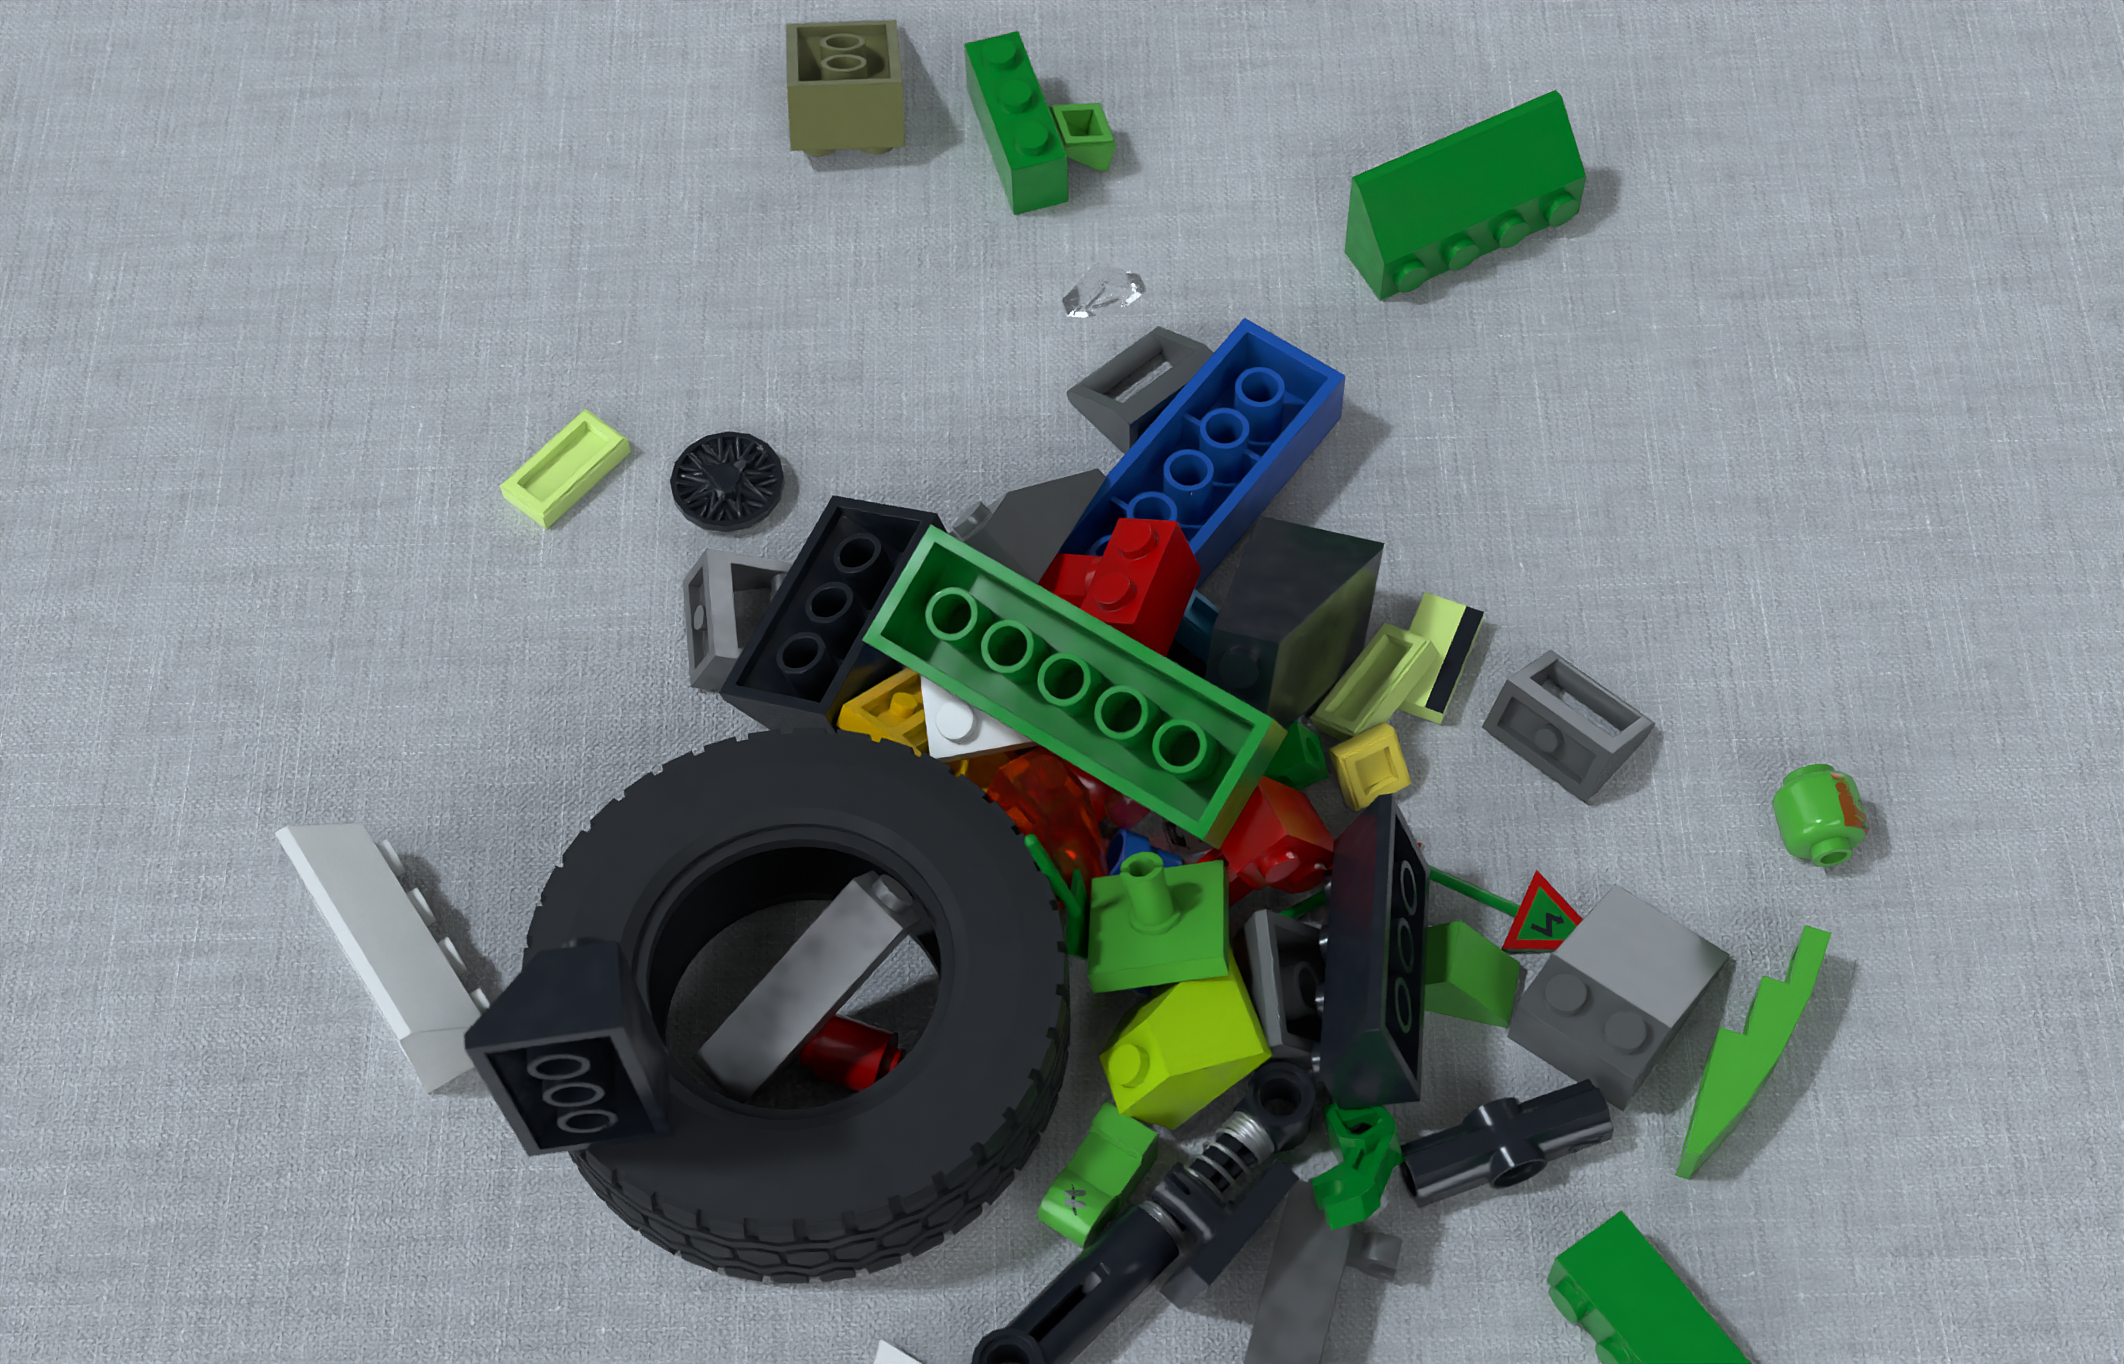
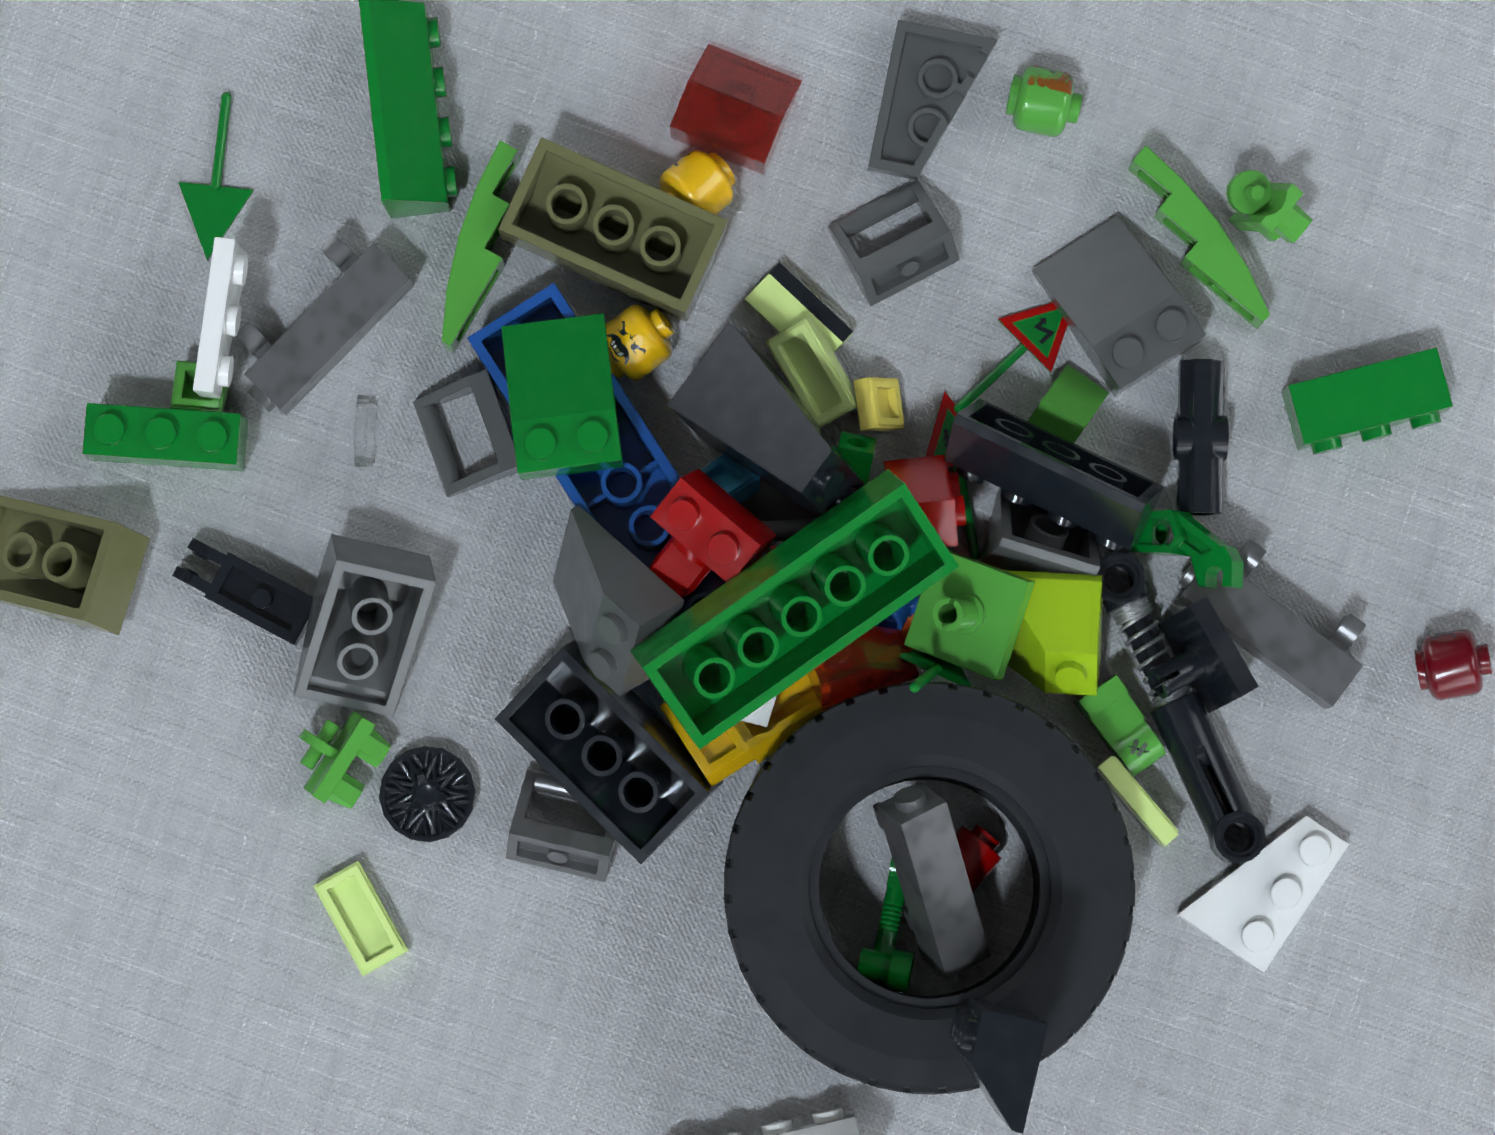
camera: 70 degrees left, 25 degrees up
(693, 1004) = (884, 961): none -> green brick
(760, 388) = (329, 777): none -> bright green hips
(883, 253) = (251, 593): none -> black hinge
(890, 347) = (363, 625): none -> dark grey slope
(1006, 1232) = (1137, 801): none -> yellowish green tile
(1164, 106) = (220, 318): none -> white wing
(1197, 221) = (327, 329): none -> flat silver brick
(1213, 414) = (561, 397): none -> green slope
(1281, 102) = (214, 206): none -> green piece
(1321, 495) = (638, 341): none -> yellow head
(1364, 318) = (474, 265): none -> bright green slope
(1435, 427) = (613, 229): none -> olive slope
(1524, 498) = (700, 180): none -> yellow head
(1632, 507) = (734, 108): none -> clear red slope
(1756, 689) = (921, 94): none -> dark grey wing
(1833, 1099) = (1266, 206): none -> bright green hips

